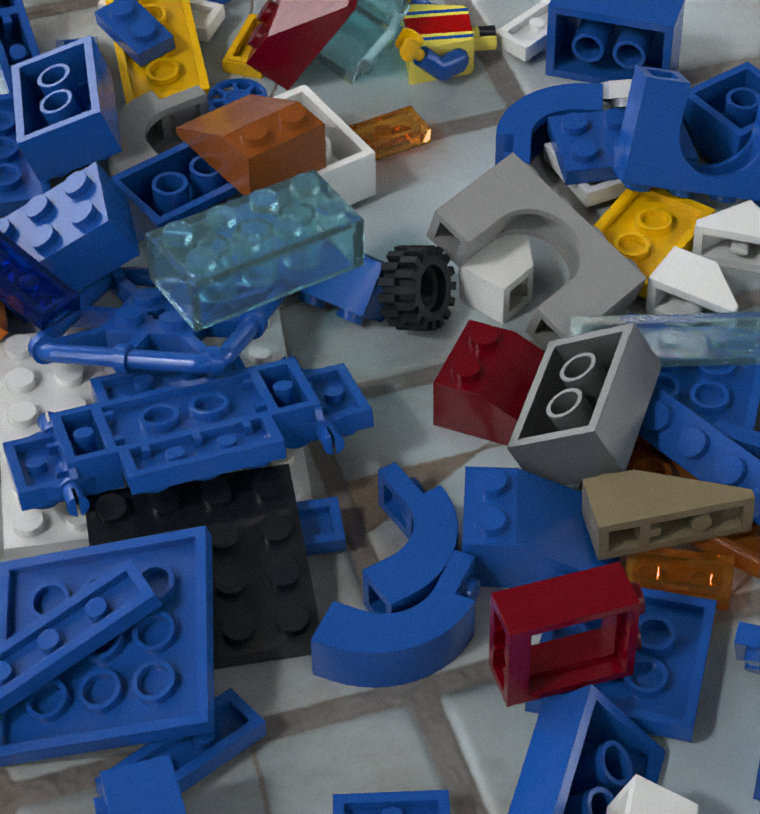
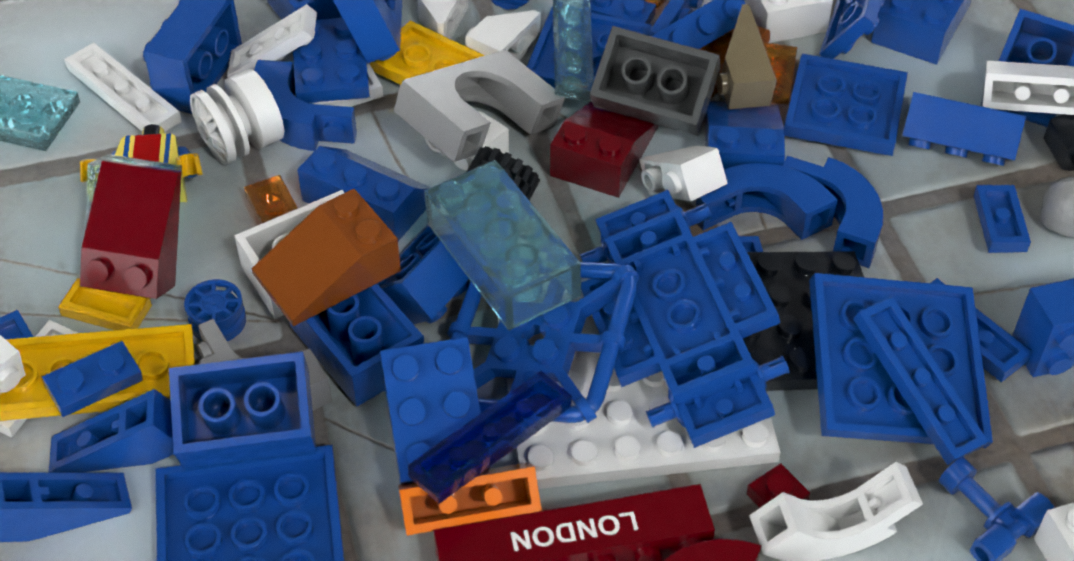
camera: 90 degrees left, 5 degrees up
(410, 186) = (390, 194): none -> blue slope
(425, 445) = (684, 172): none -> white slope
(496, 69) = (237, 116): none -> white wheel
(571, 662) = (874, 98): dark red window -> none

